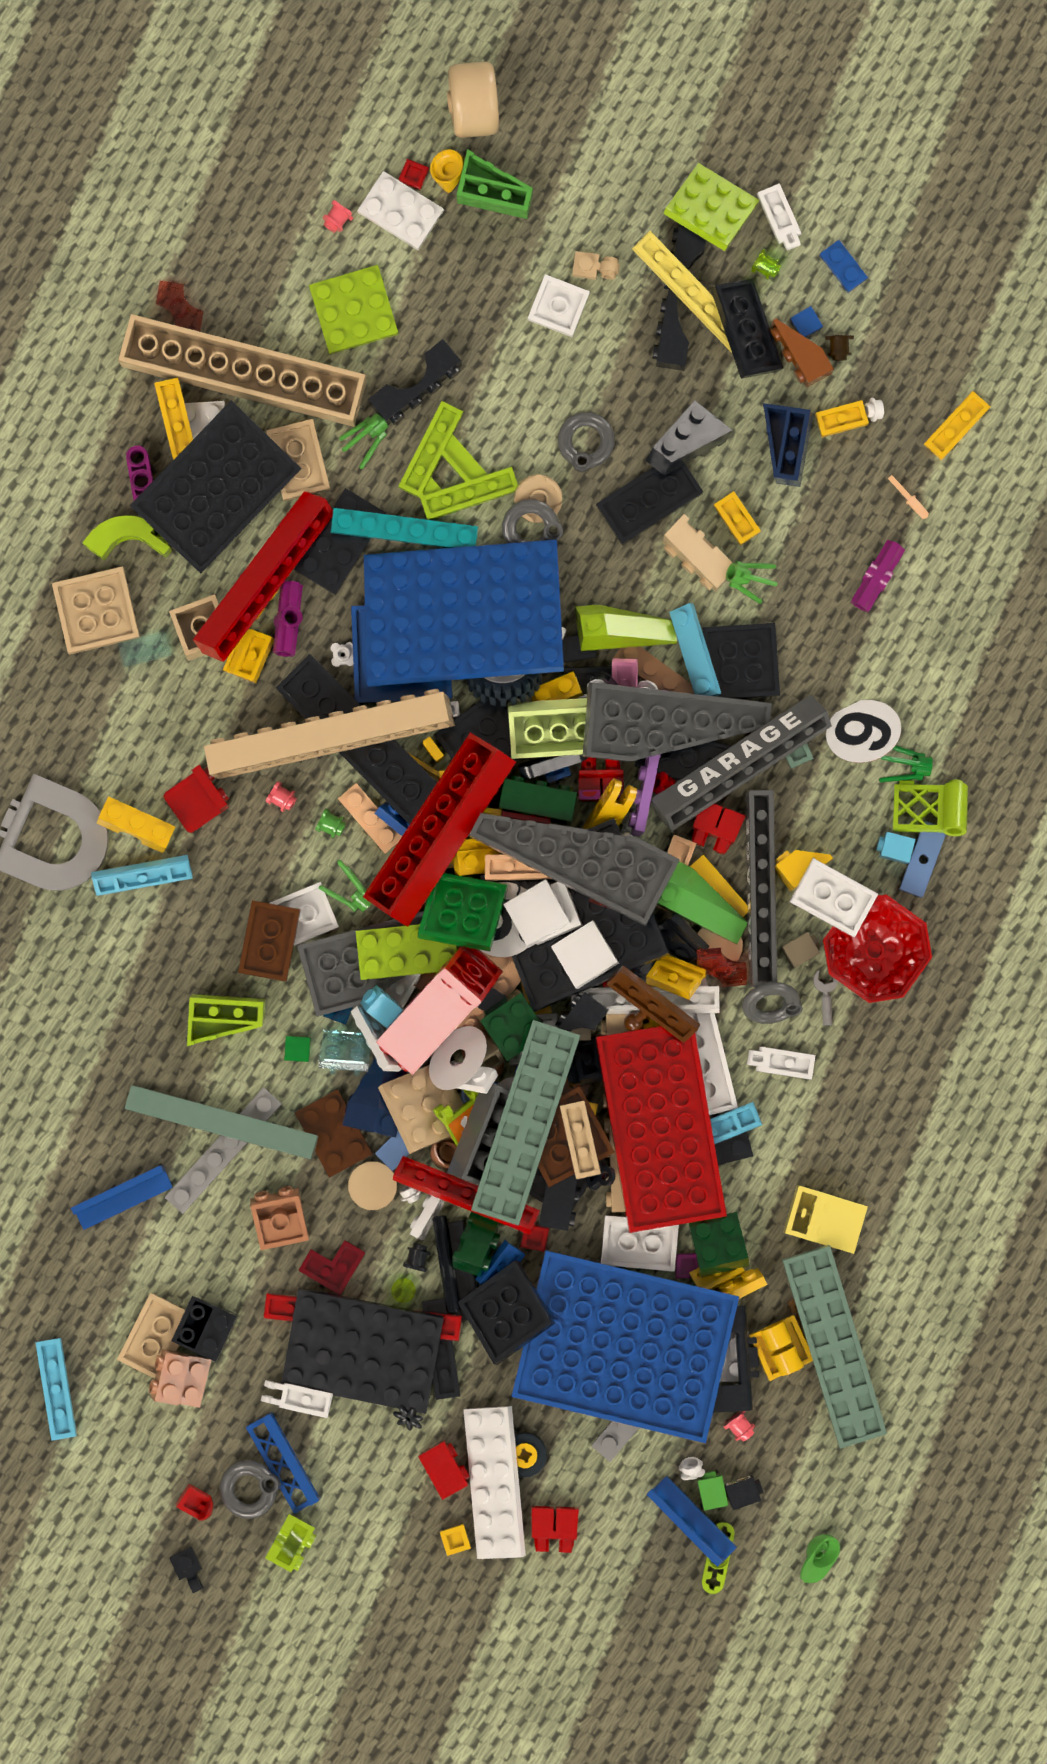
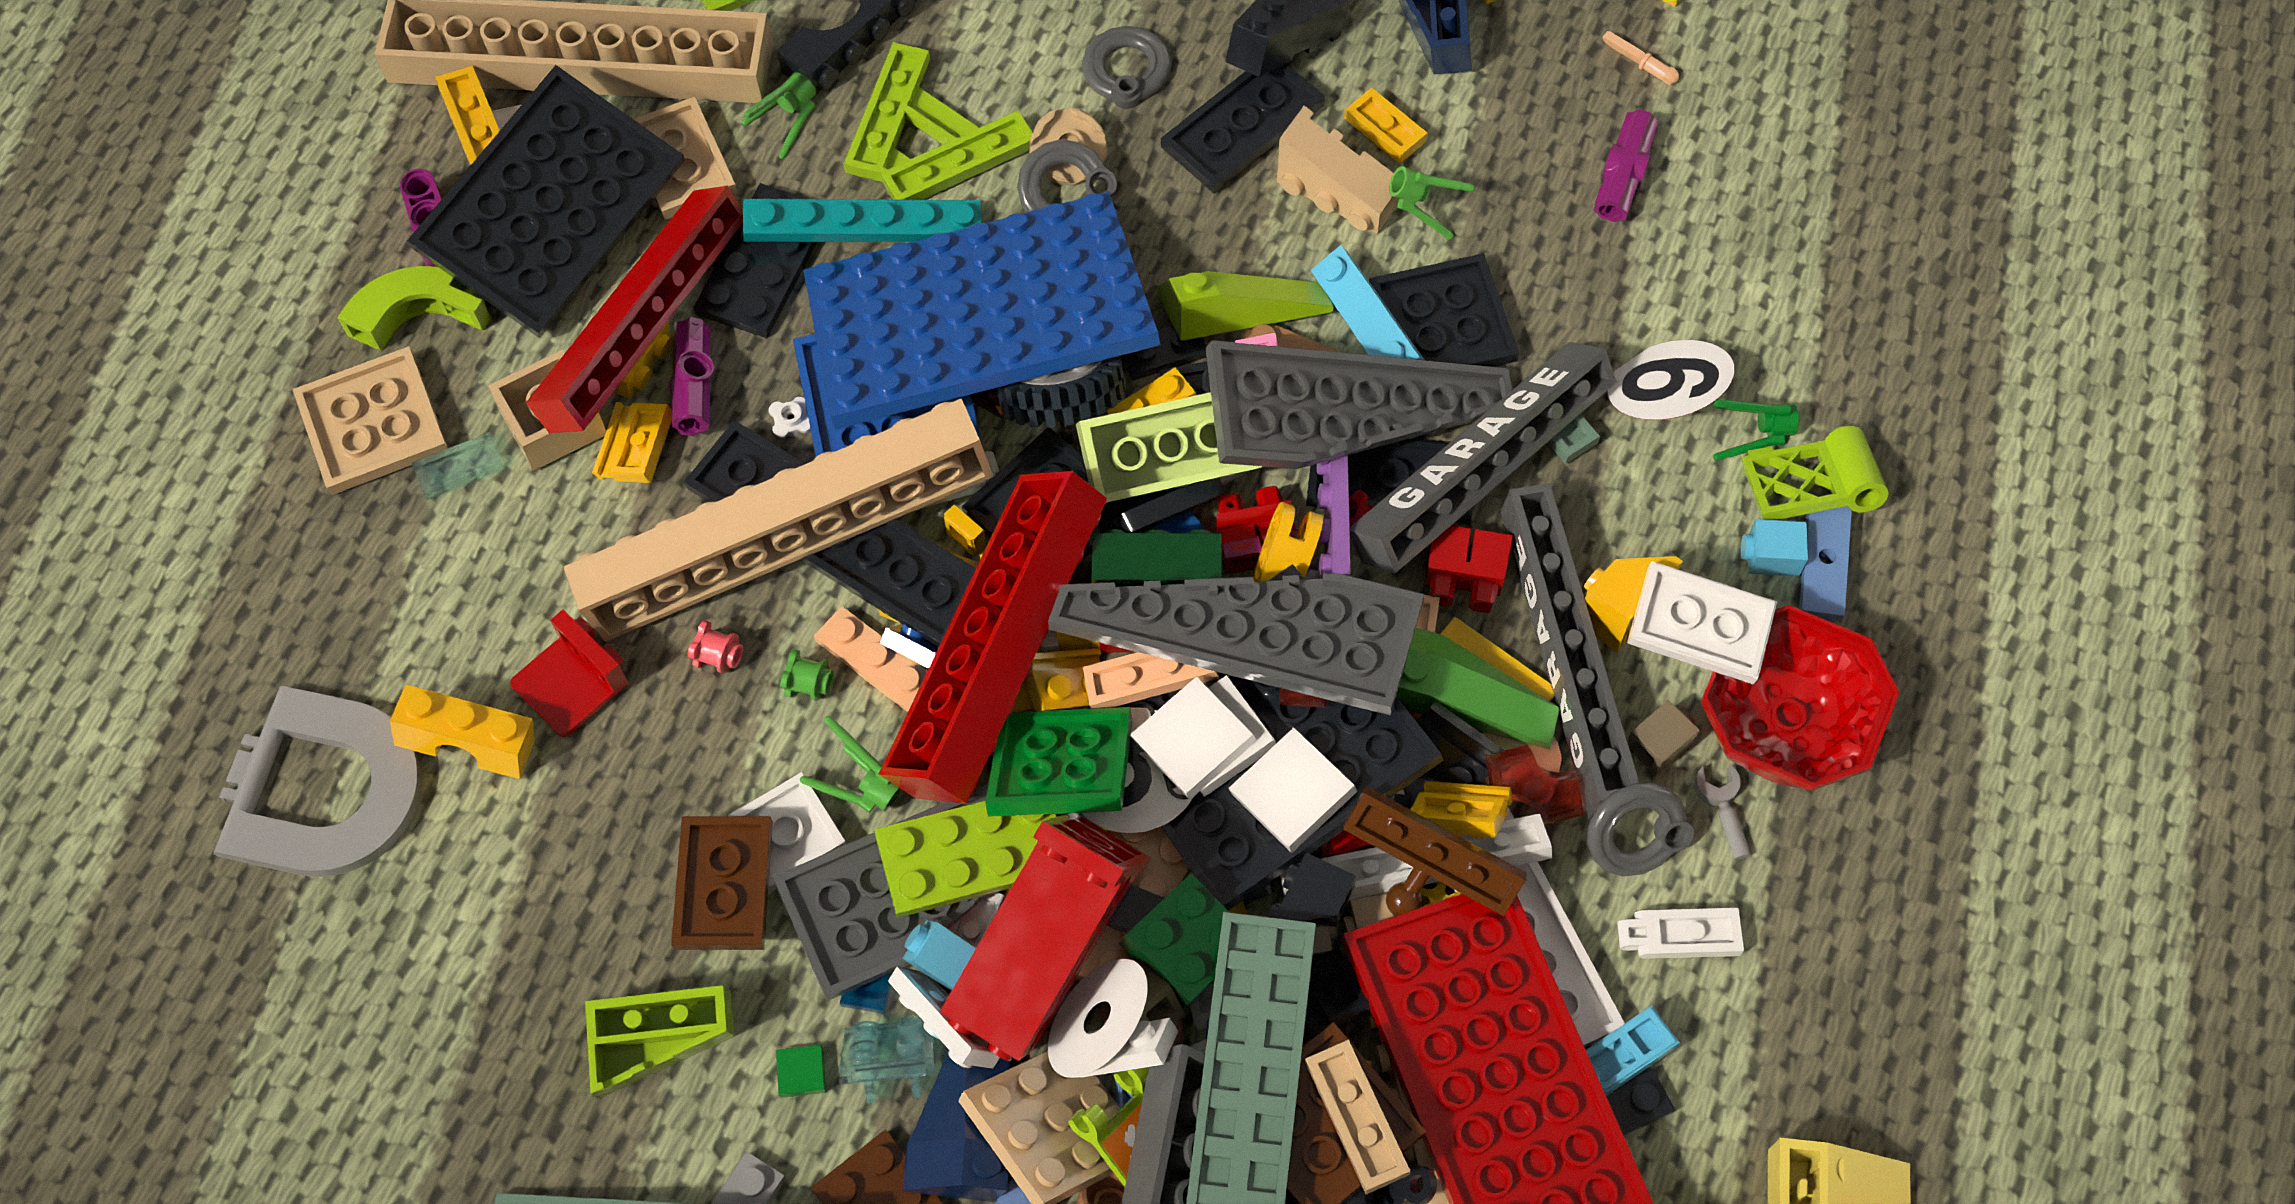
camera: 10 degrees left, 20 degrees down
(141, 875) = (483, 818): medium azure plate -> none

